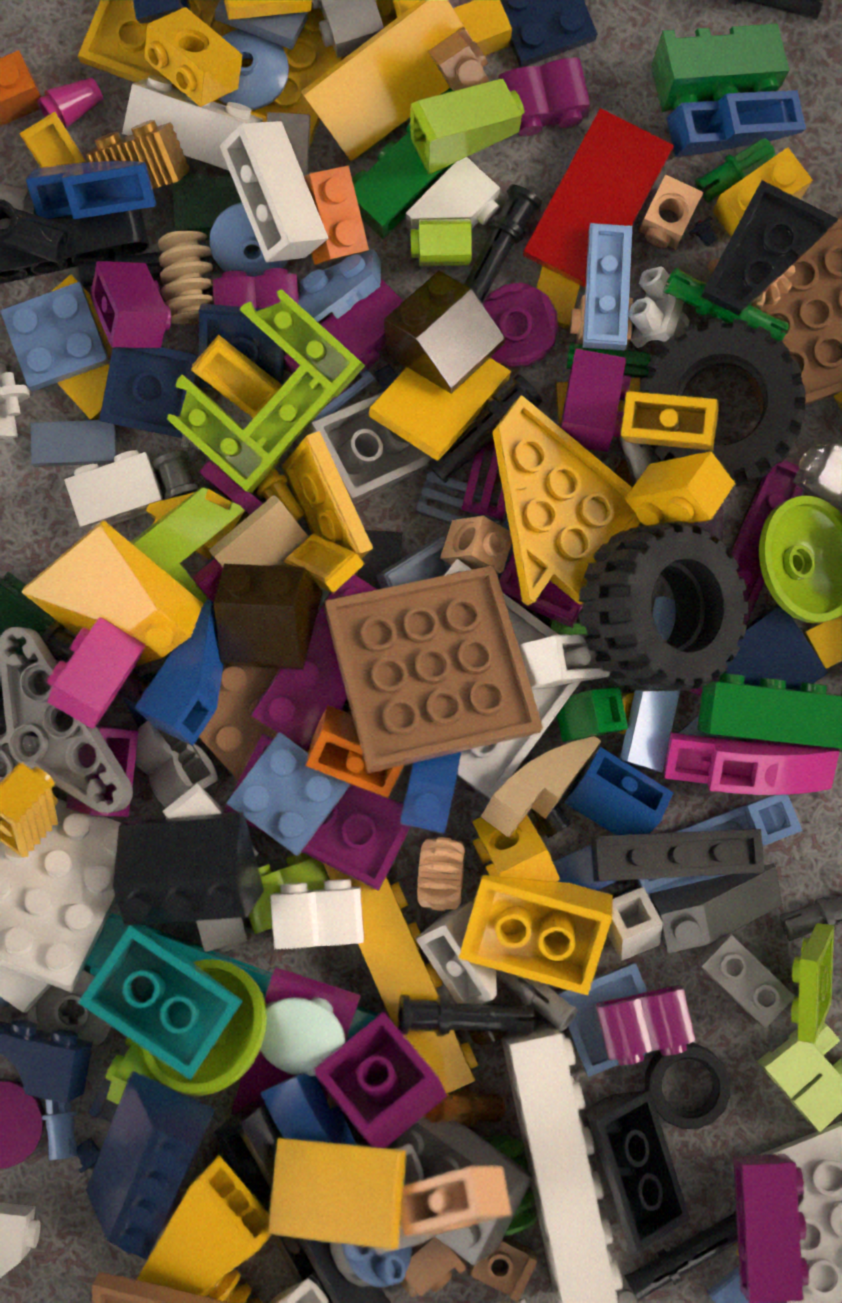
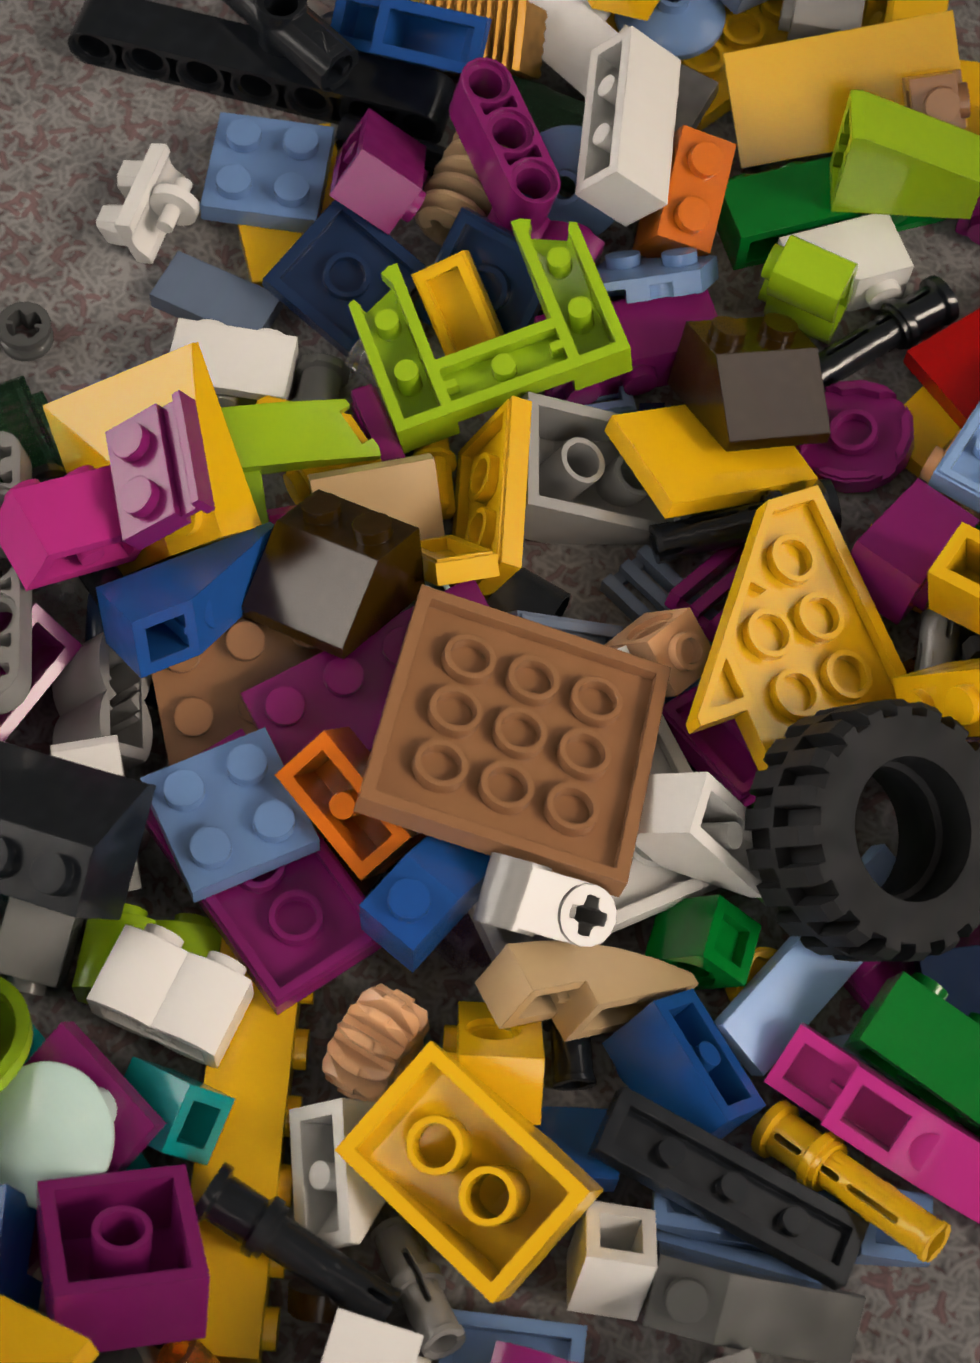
camera: 25 degrees right, 20 degrees down
(130, 618) = (159, 471): none -> plate
(194, 230) = (503, 120): none -> magenta beam
(358, 973) = (189, 1107): none -> teal brick
(500, 764) = (539, 902): none -> piece
(723, 807) = (824, 1164): none -> yellow pin

